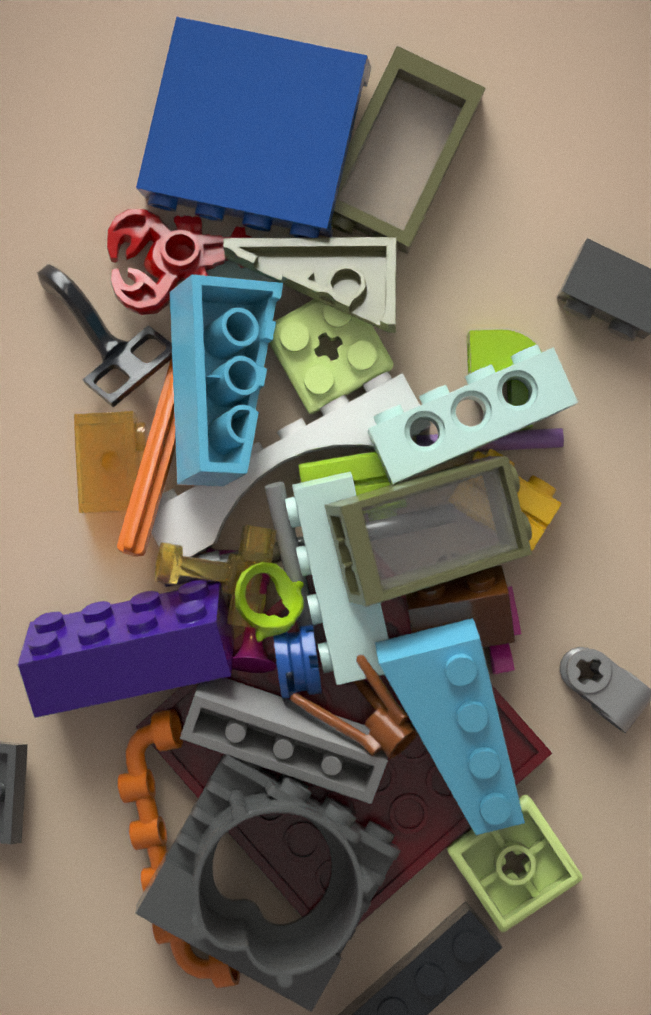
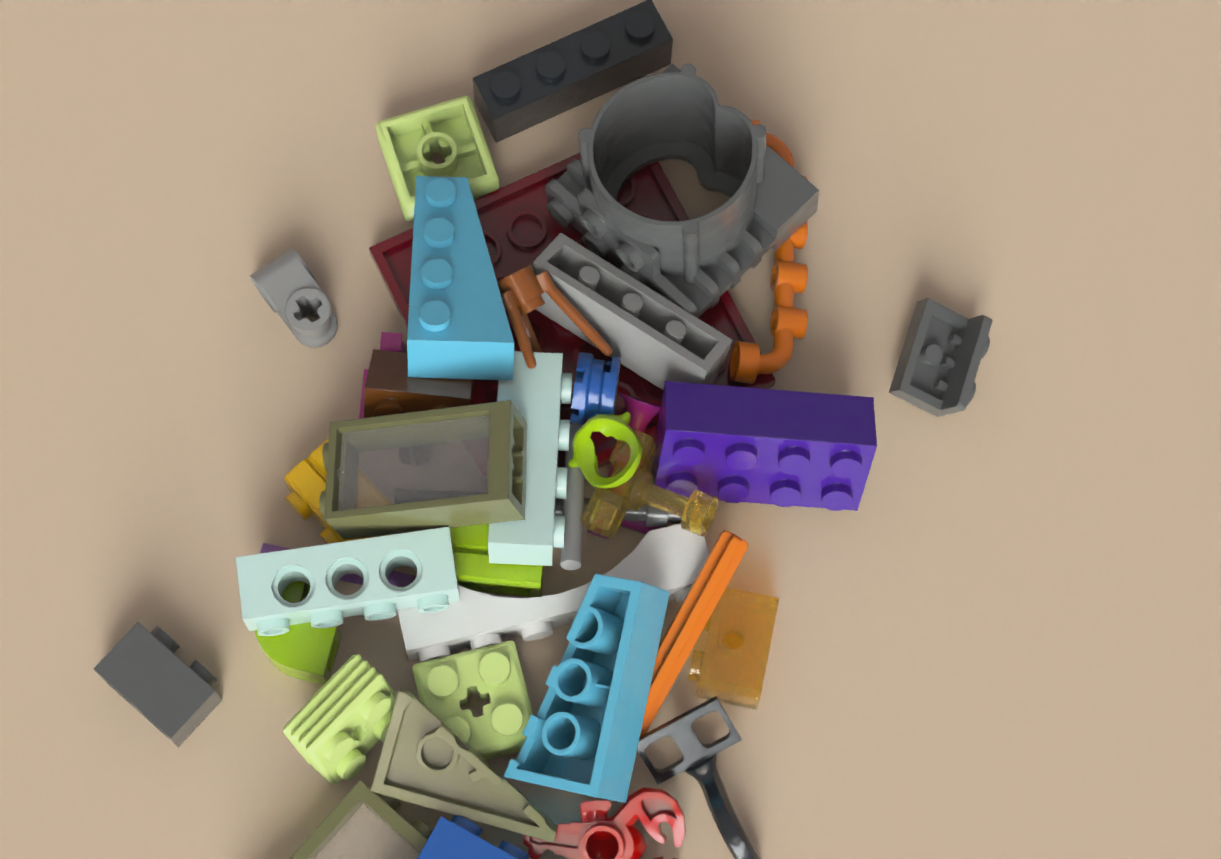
camera: 170 degrees left, 15 degrees down
(438, 294) = (343, 720): none -> yellowish green brick

